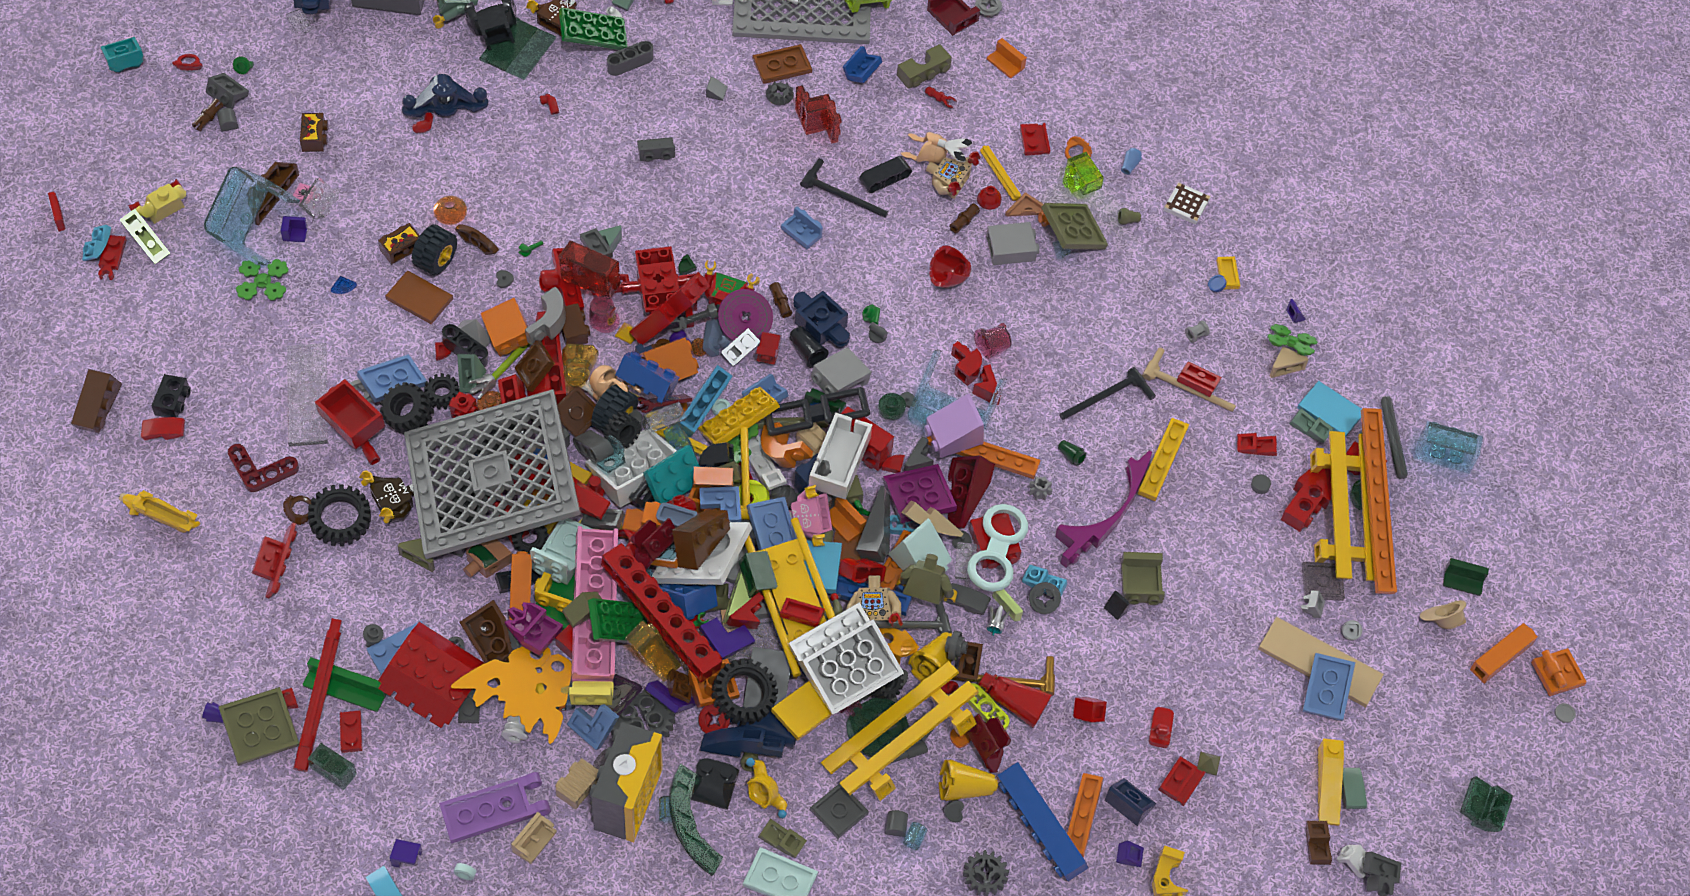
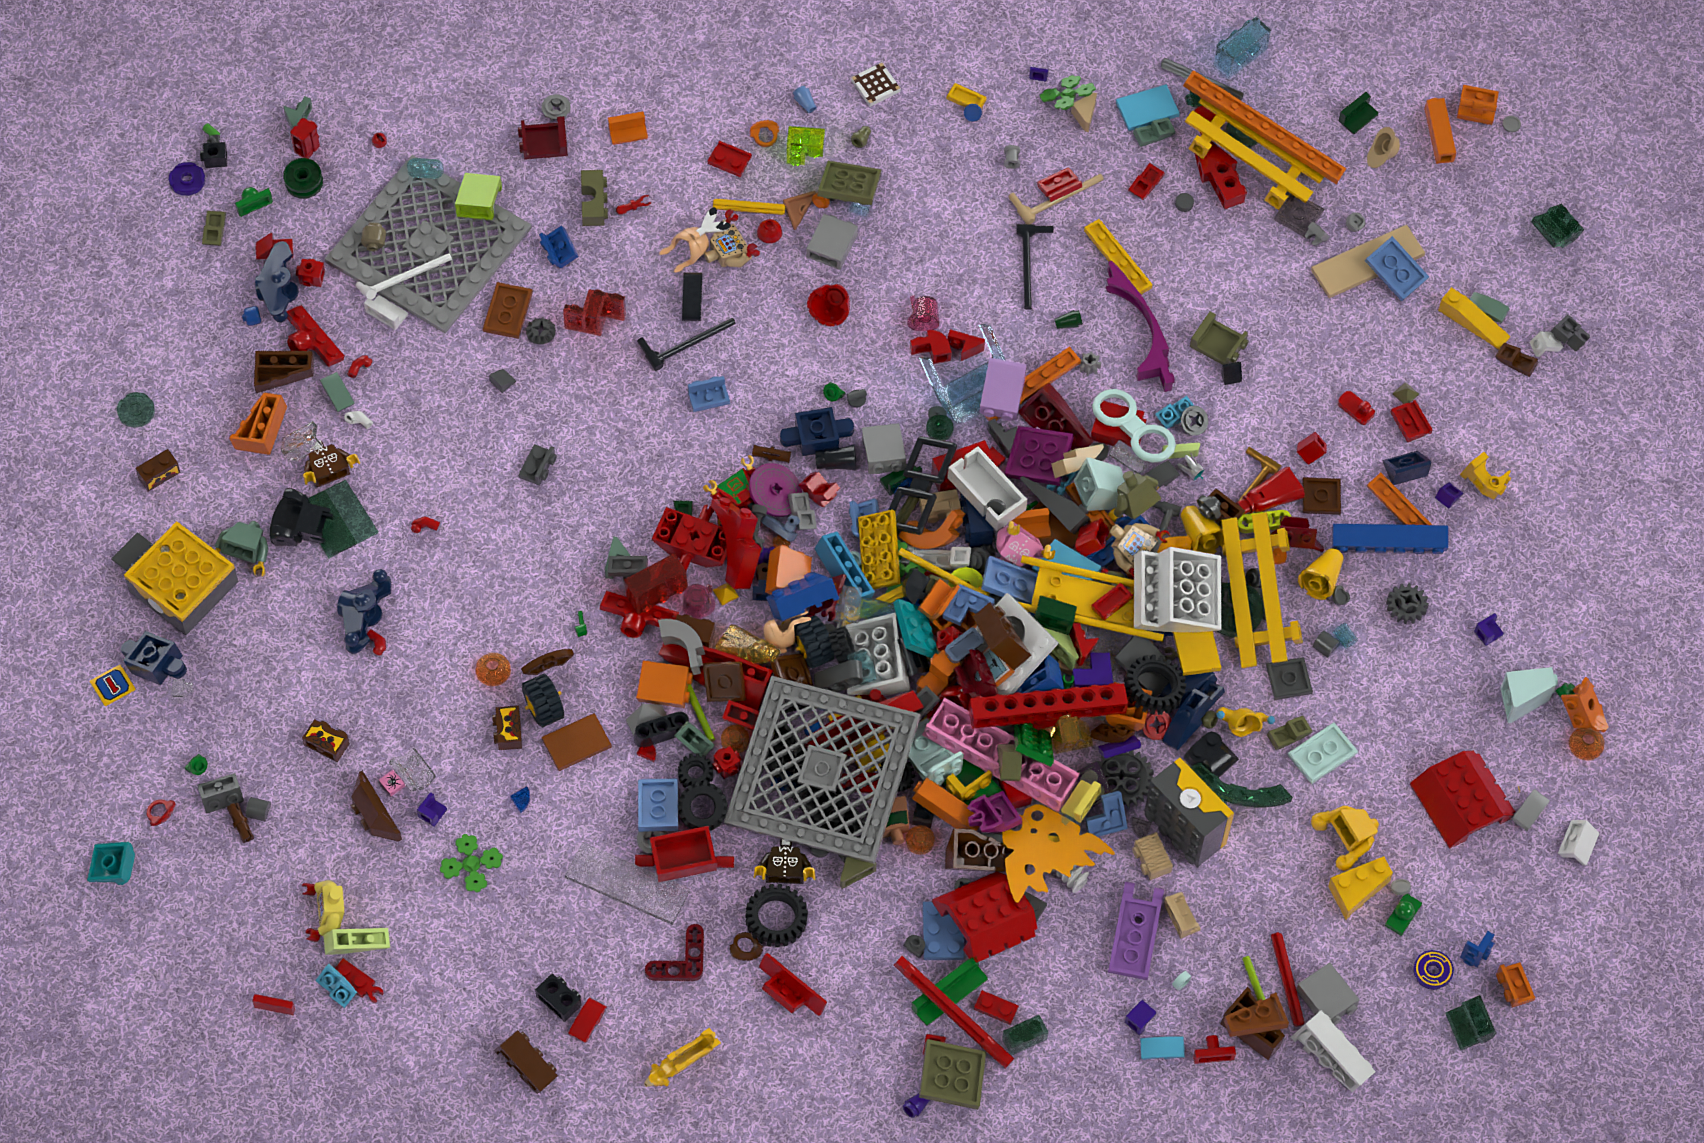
camera: 55 degrees left, 5 degrees up
(237, 208) = (389, 839): clear light blue windscreen -> none
(480, 588) = (920, 840): none -> clear orange plate
(485, 383) = (713, 729): flat silver piece -> none
(504, 278) = (601, 662): dark grey piece -> none
(592, 29) = (371, 441): green tile -> none
(630, 58) = (419, 422): dark grey beam -> none
(964, 218) = (779, 262): reddish brown pin -> none
(1048, 743) = (1321, 495): none -> reddish brown tile

